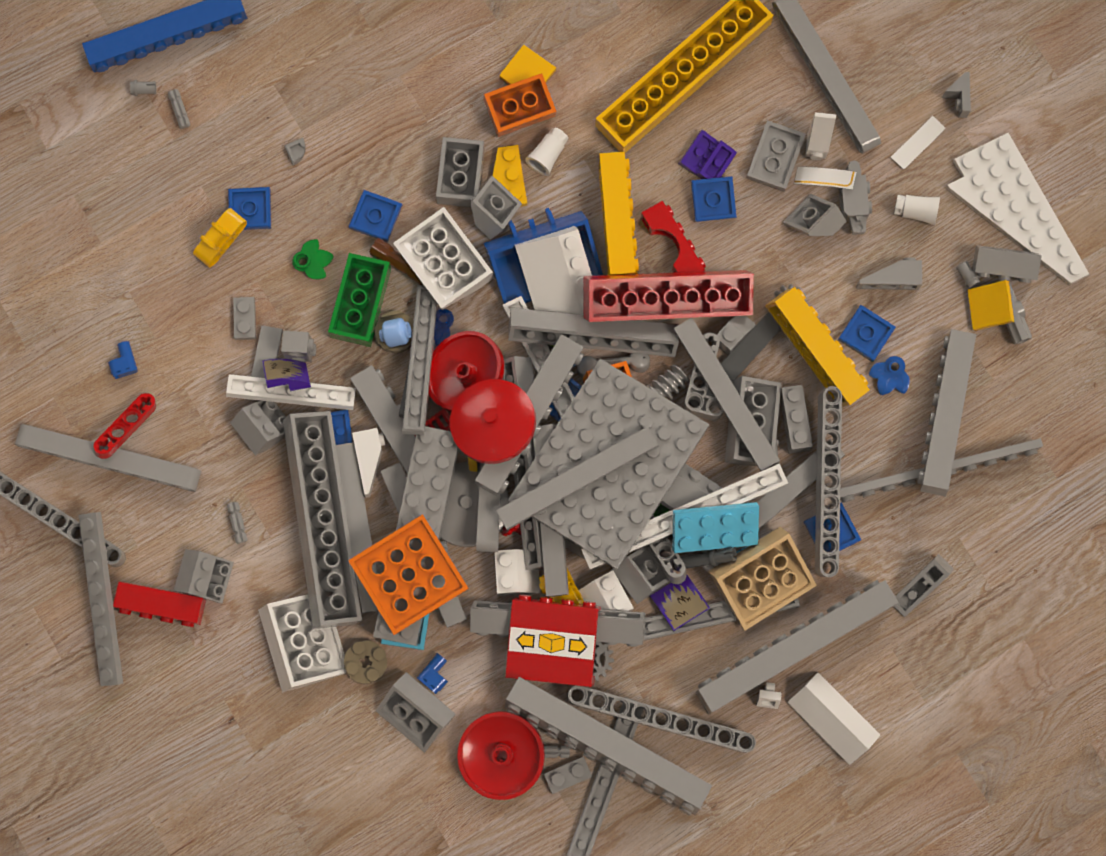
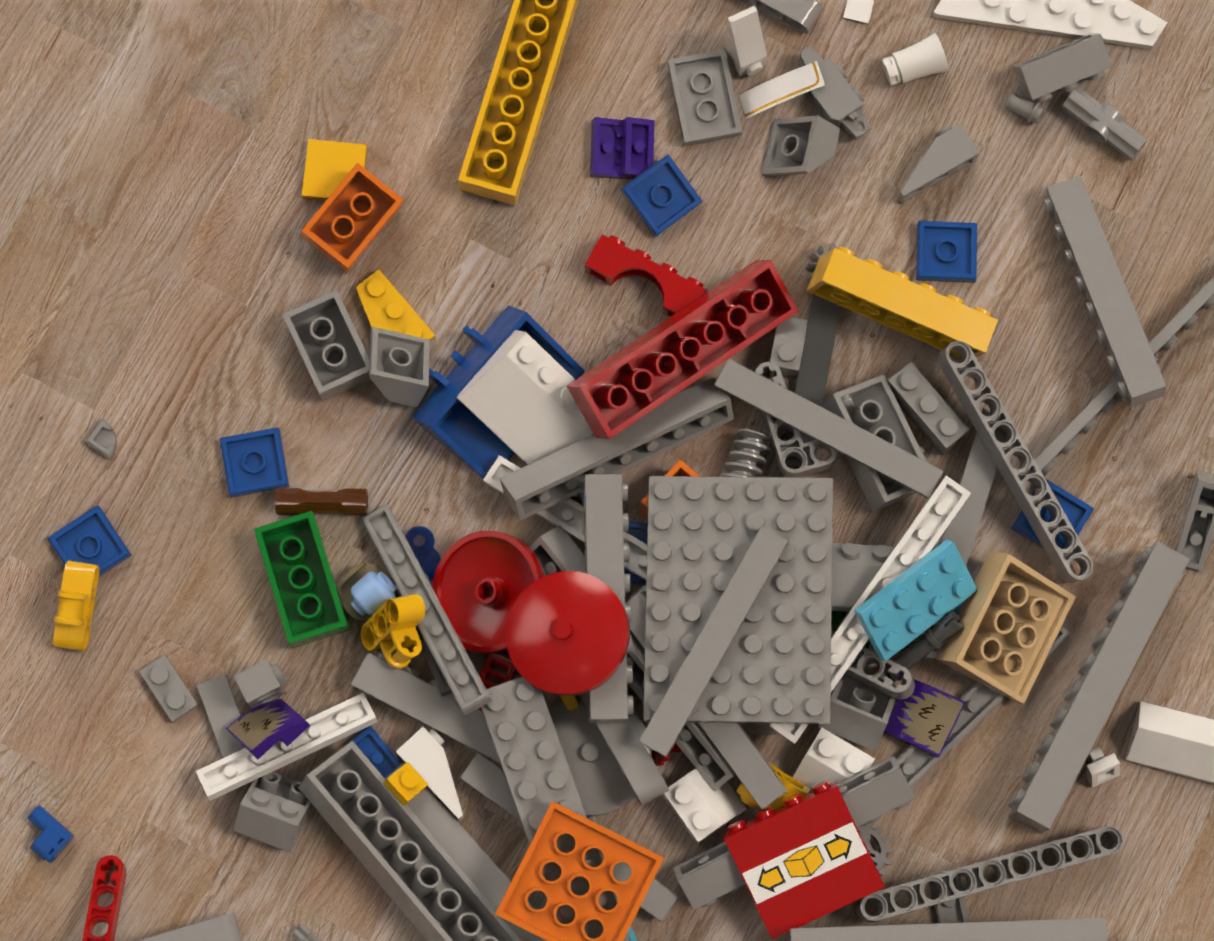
camera: 30 degrees left, 0 degrees up
(316, 260) = (213, 561): green plate -> none
(346, 455) = (405, 784): none -> yellow plate
(394, 359) = (395, 629): none -> yellow piece
(444, 259) = (376, 466): white slope -> none
(547, 152) = (421, 256): white plant -> none
(616, 212) = (557, 285): yellow brick -> none
(637, 362) = (691, 452): light grey piece -> none
(888, 378) = (1007, 291): blue plate -> none
(990, 305) = (1075, 130): yellow tile -> none

